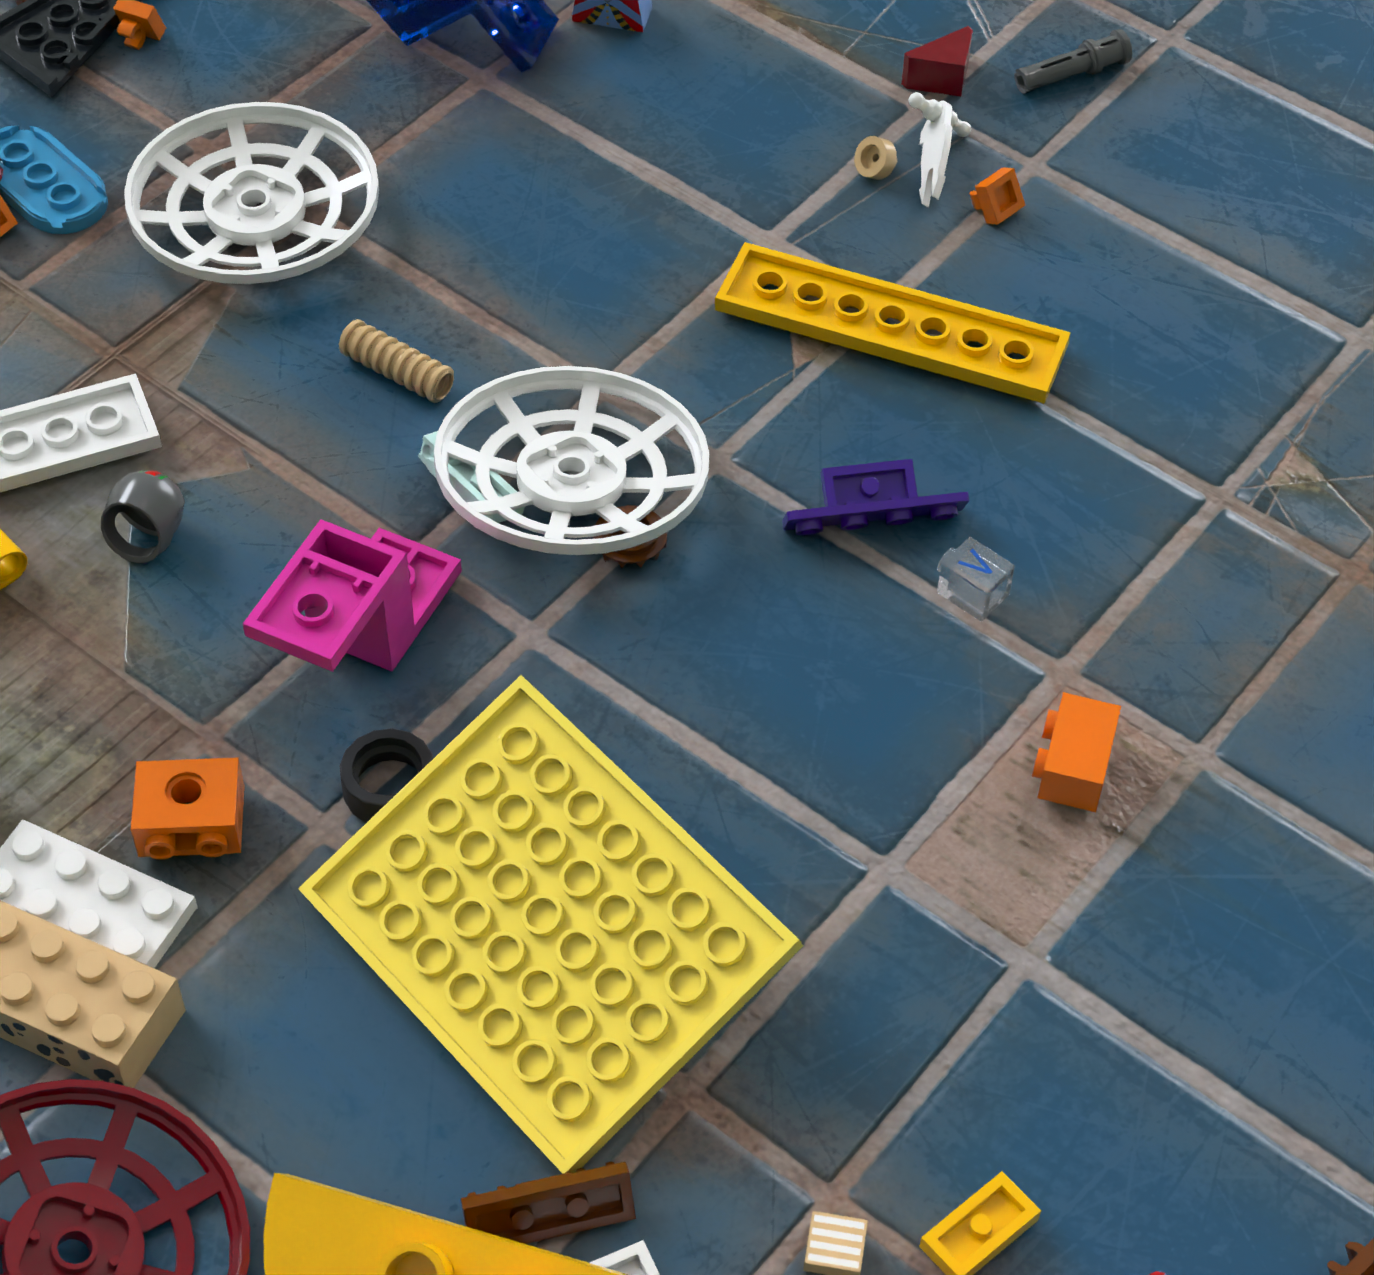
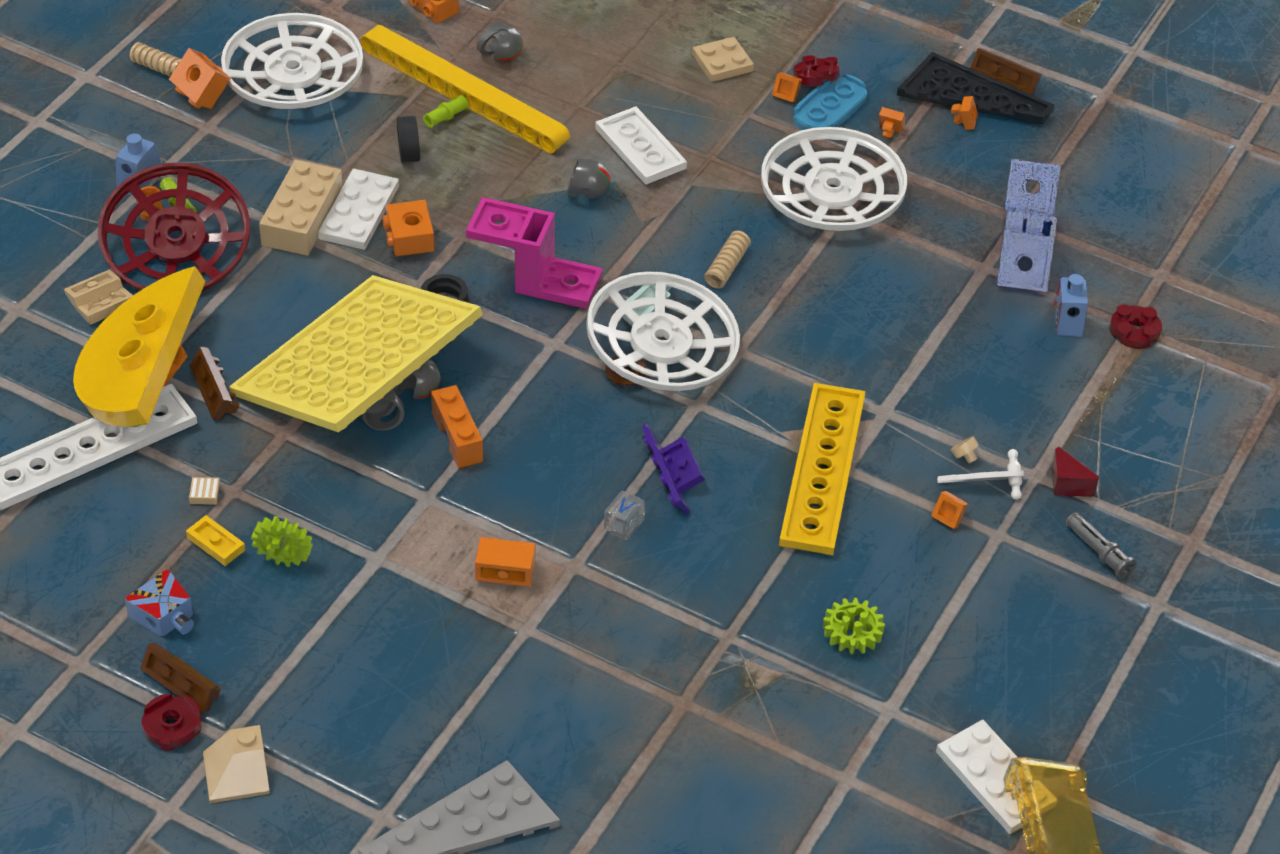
camera: 80 degrees right, 5 degrees down
(127, 109) = (891, 121): none -> orange tile
(707, 788) = (454, 417): none -> orange arch
(1027, 1092) = (269, 535): none -> lime gear
(1238, 348) = (842, 618): none -> lime gear

